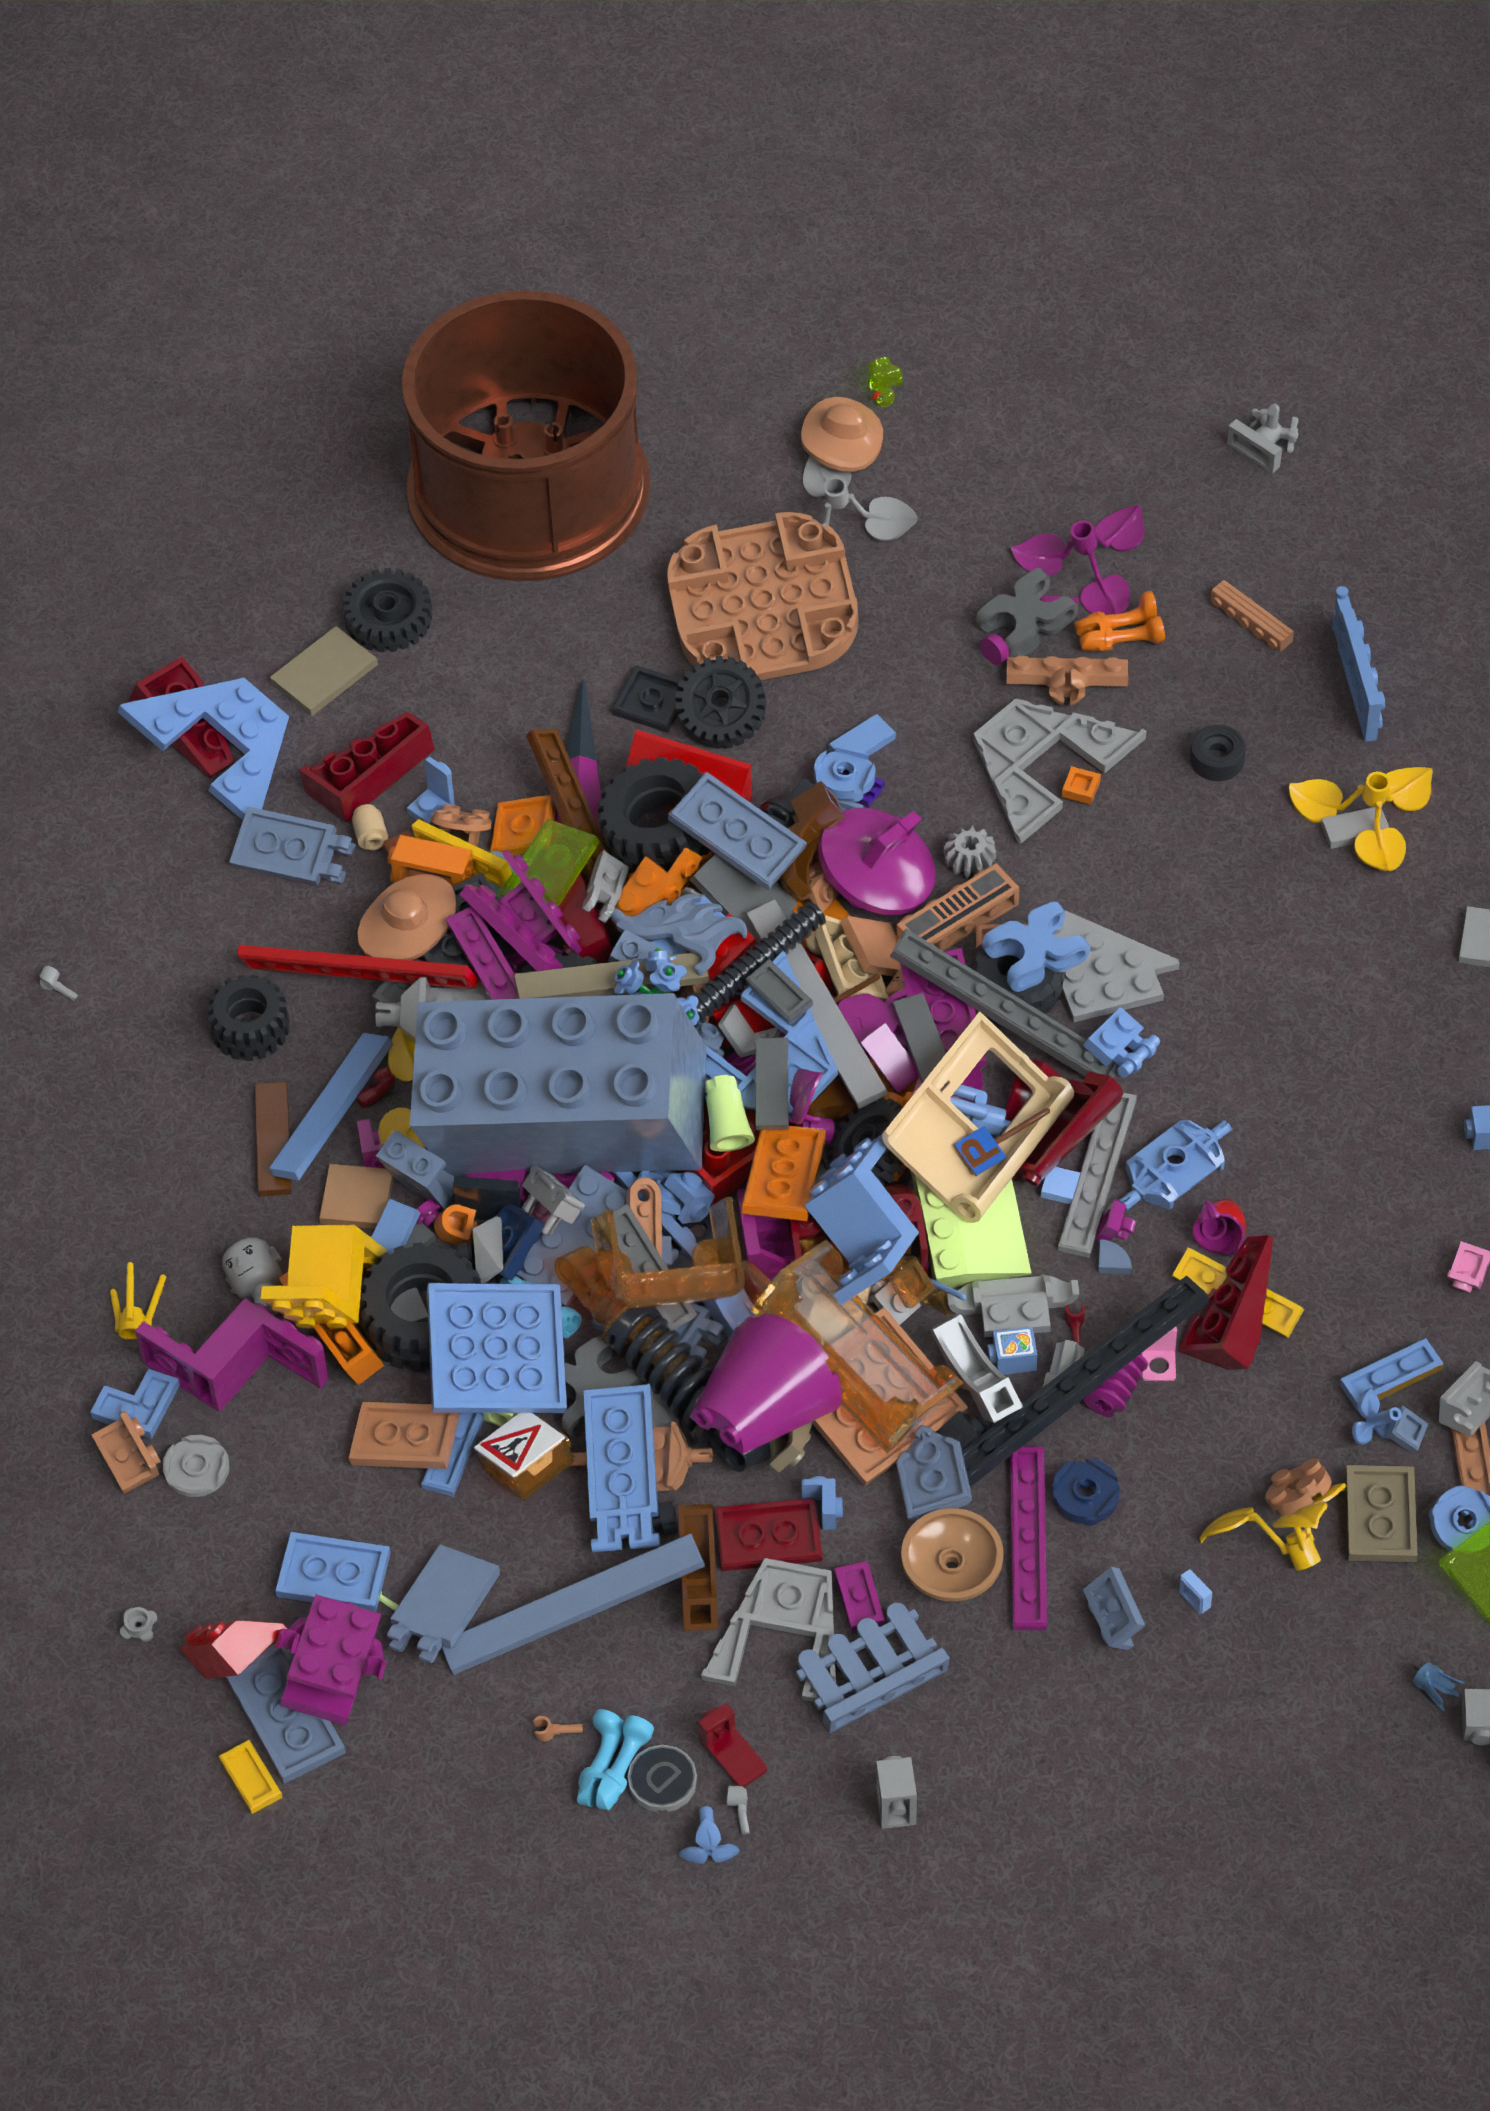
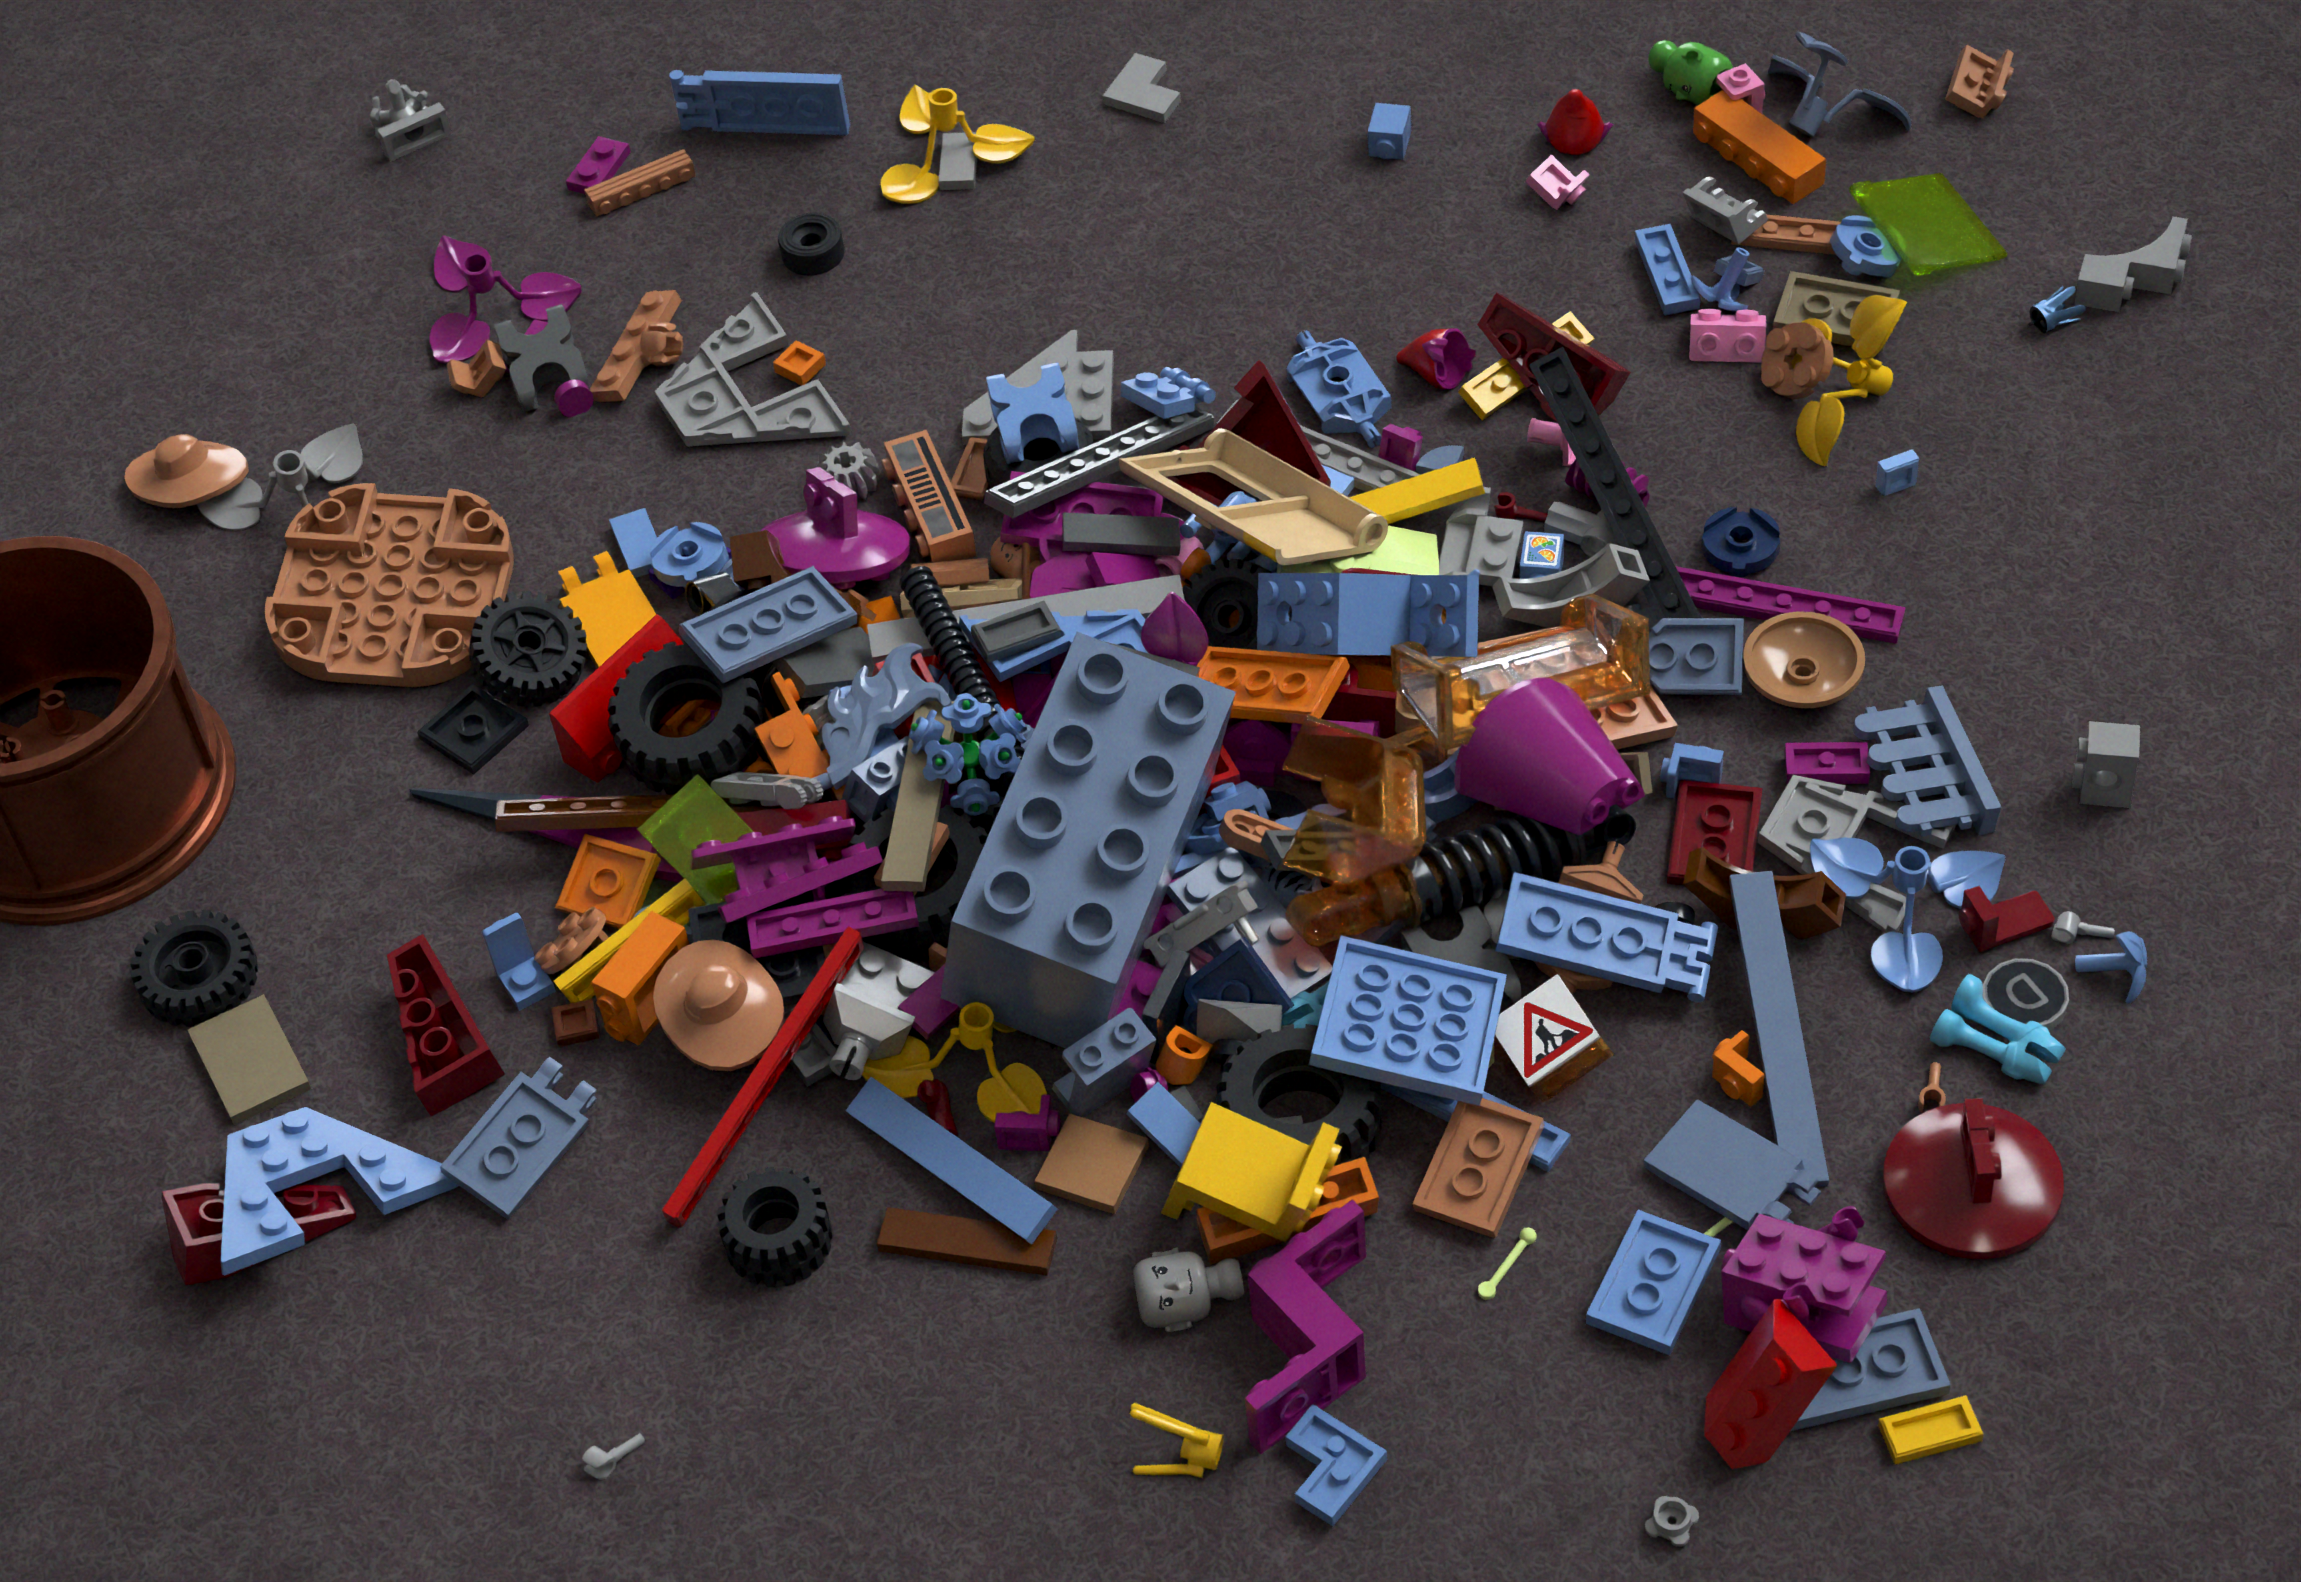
camera: 70 degrees left, 5 degrees down
(126, 1453) = (1411, 1479): nougat bracket -> none
(196, 1475) = (1444, 1429): light grey tile -> none
(308, 1470) = (1488, 1288): none -> yellowish green hinge
(369, 827) = (528, 1046): tan brick -> none
(473, 1767) = (1973, 1180): none -> dark red bracket
(533, 1584) = (1734, 1072): none -> orange bracket
(740, 1033) = (1033, 707): light grey bracket -> none
(747, 1625) = (1906, 958): none -> medium blue plant
(784, 748) = (608, 607): none -> light orange tile
(881, 377) = (125, 421): clear neon green animal -> none
(982, 1150) = (1293, 504): piece -> none
(998, 576) = (480, 373): none -> nougat bracket
(1054, 1240) = (1424, 491): none -> yellow tile
(1097, 631) = (590, 258): orange piece -> none
(1114, 1609) = (1910, 533): sand blue bracket -> none
(1264, 582) = (598, 164): none -> magenta plate
(1326, 1433) = (1727, 336): none -> bright pink bracket

